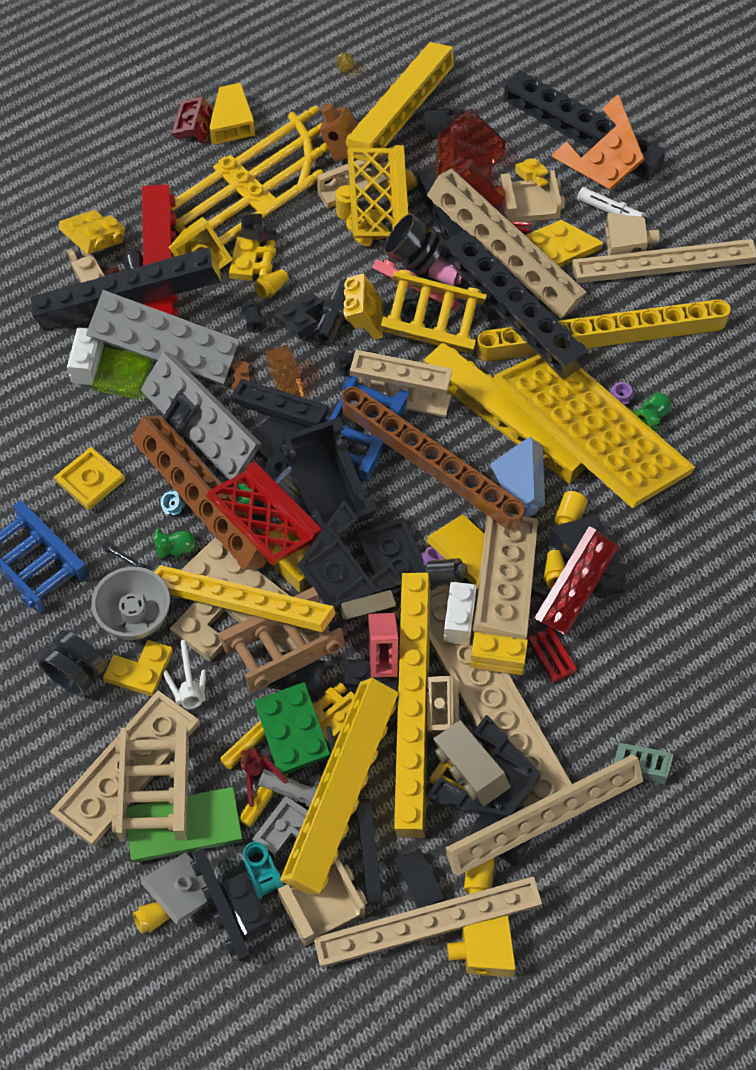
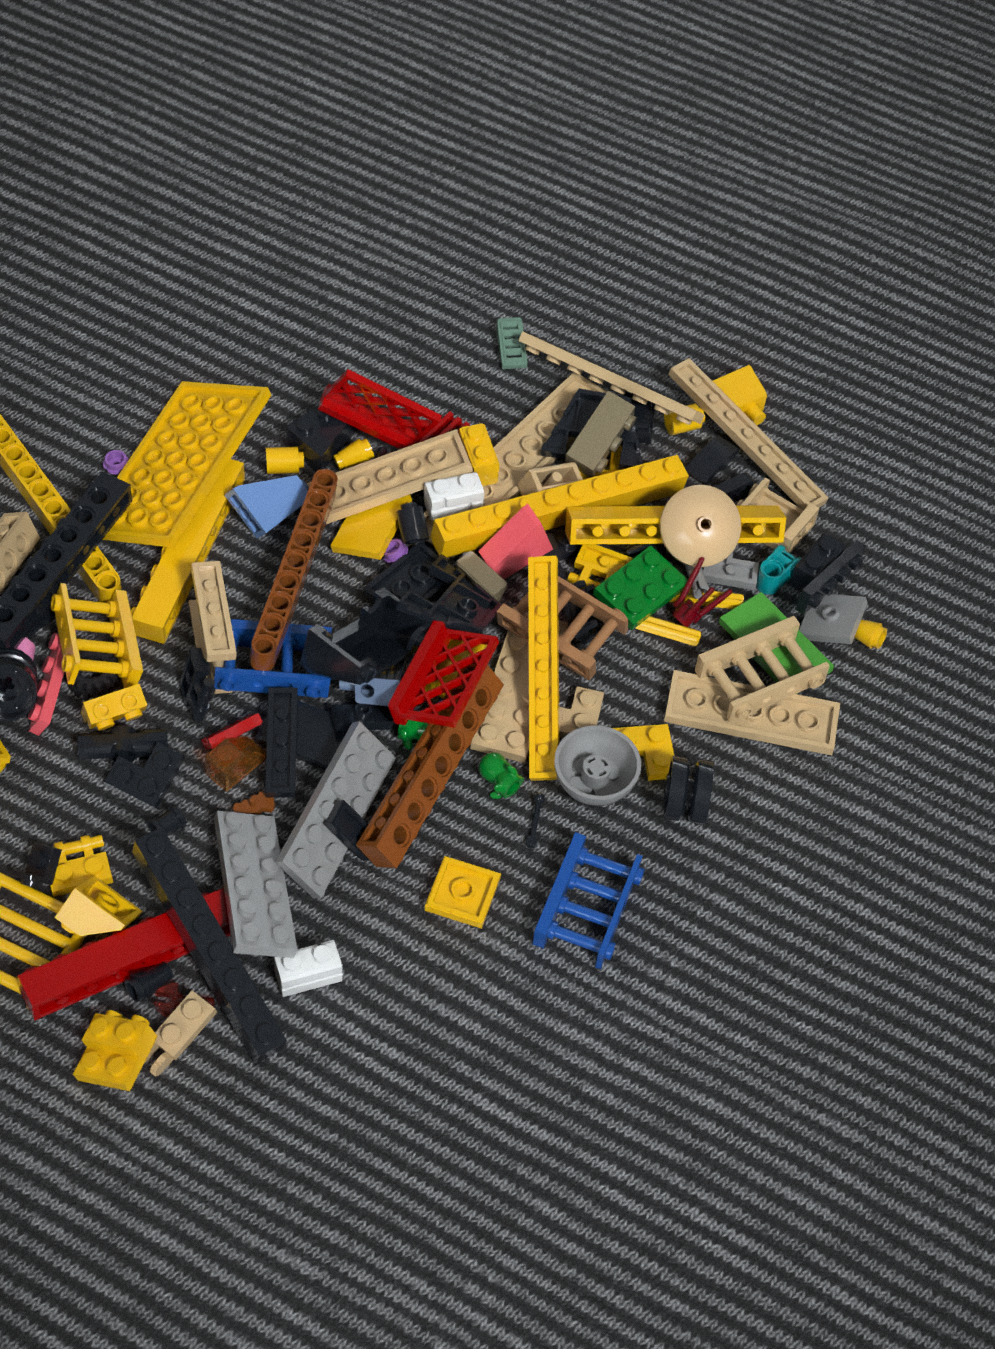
camera: 120 degrees left, 5 degrees down
(121, 373) = (315, 922): clear neon green plate -> none
(166, 503) = (457, 796): medium azure plate -> none
(190, 694) = (654, 682): white plant -> none
(269, 284) = (109, 825): yellow cone -> none
(311, 379) = (232, 730): none -> red tile
(317, 792) = (683, 531): none -> tan dish
(653, 409) = (127, 429): green animal -> none

